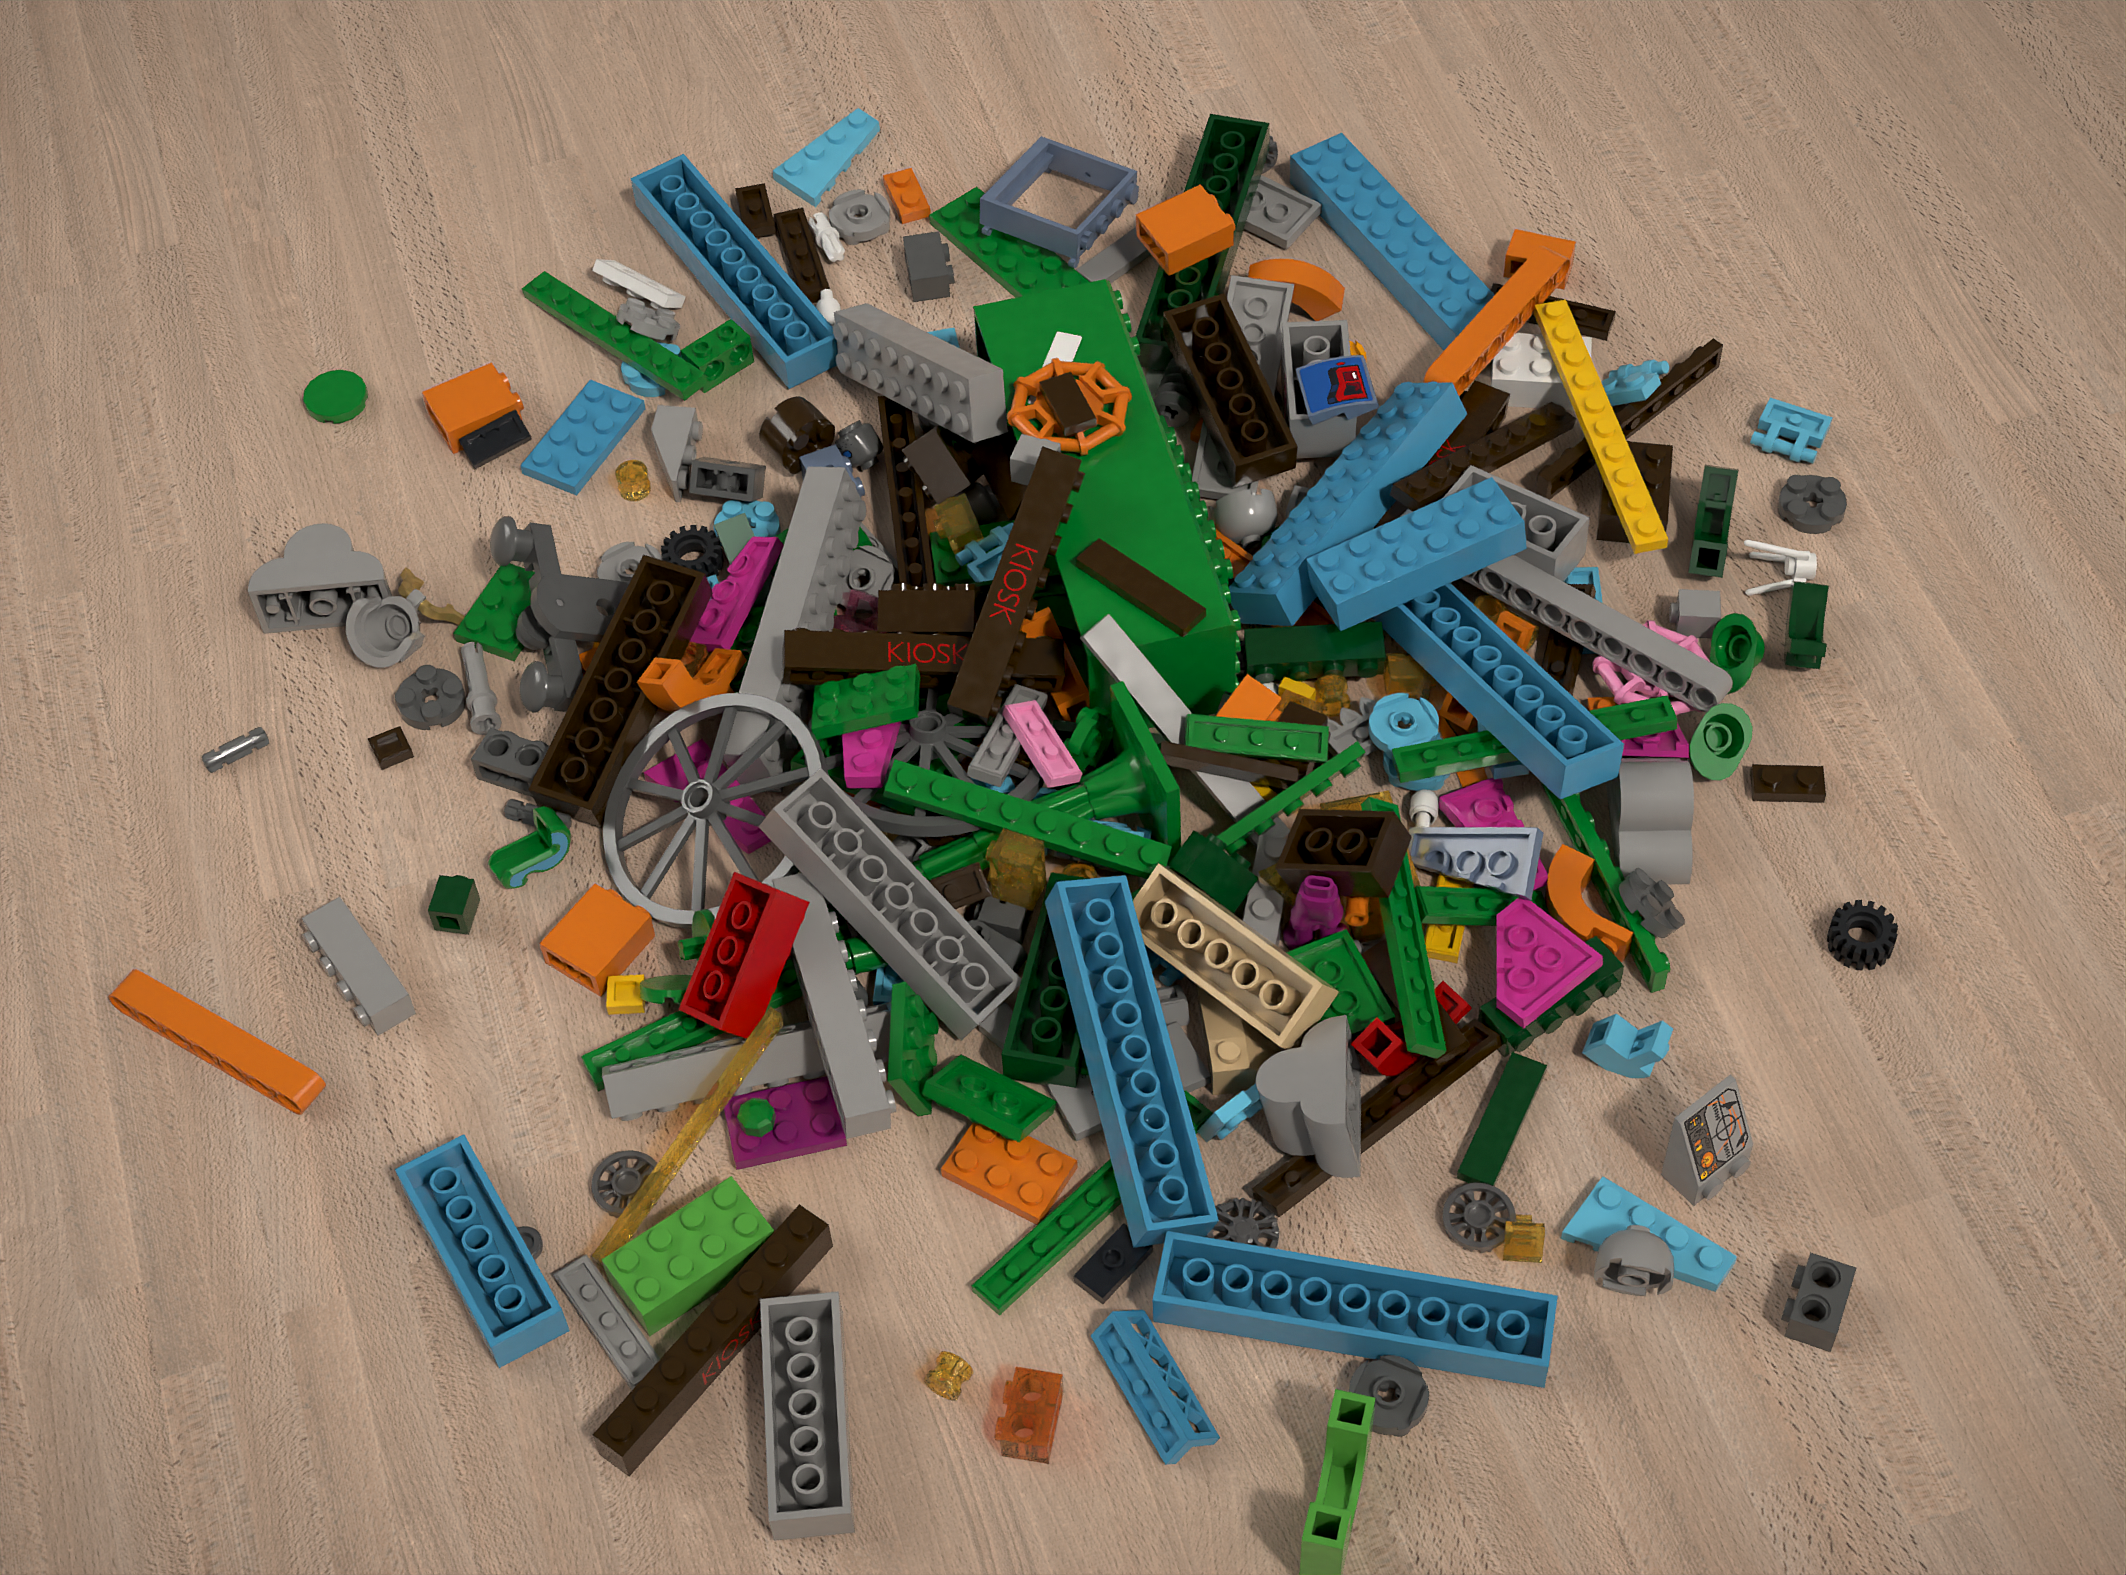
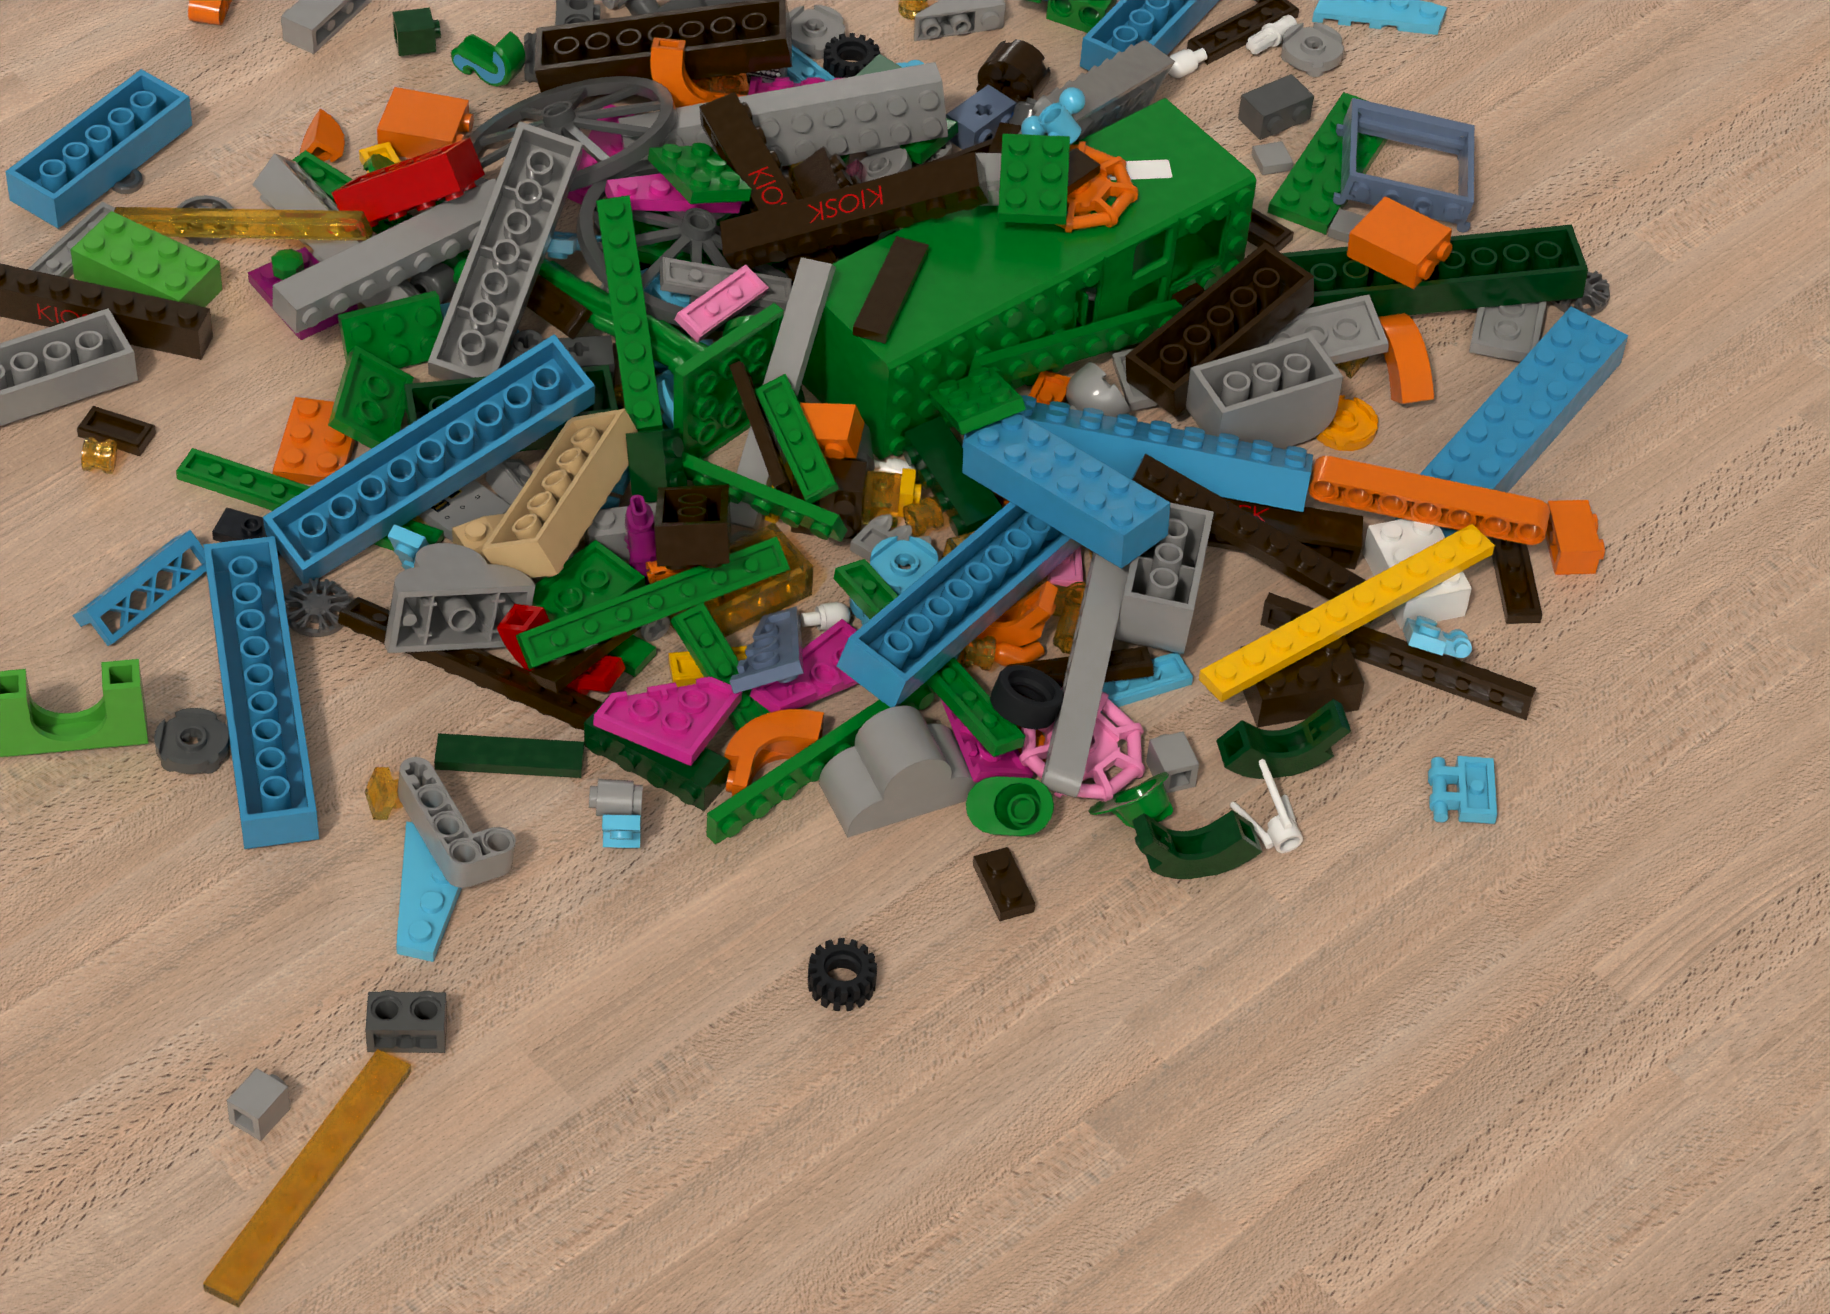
camera: 60 degrees right, 5 degrees down
(564, 1039) = (324, 138): none -> orange brick
(727, 479) = (943, 44): dark grey brick -> none
(906, 195) = (1362, 73): orange plate -> none
(908, 1353) = (130, 434): none -> dark brown tile
(983, 292) = (1272, 158): none -> light grey tile
(987, 405) = (1057, 117): none -> medium azure piece
(1017, 868) = (588, 329): clear yellow brick -> none
(1036, 1415) = (82, 515): clear orange brick -> none
(1074, 423) = (1034, 179): none -> green plate
(1280, 581) = (976, 400): none -> green plate
(1337, 388) = (1241, 384): slope -> none
(1477, 1216) = (396, 755): flat silver wheel -> none
(1554, 1201) = (461, 856): none -> light grey beam
(1624, 691) = (1021, 710): none -> black tyre
(1629, 1034) = (616, 797): none -> light grey brick
(1635, 1261) = (384, 865): light grey cylinder -> none
(1652, 902) = (808, 791): dark grey plate -> none
(1708, 1143) = (527, 884): light grey slope -> none
(1822, 490) = (1379, 812): dark grey plate -> none
(1885, 1458) = (258, 1104): none -> light grey brick
(1977, 1445) = (306, 1178): none -> clear yellow tile

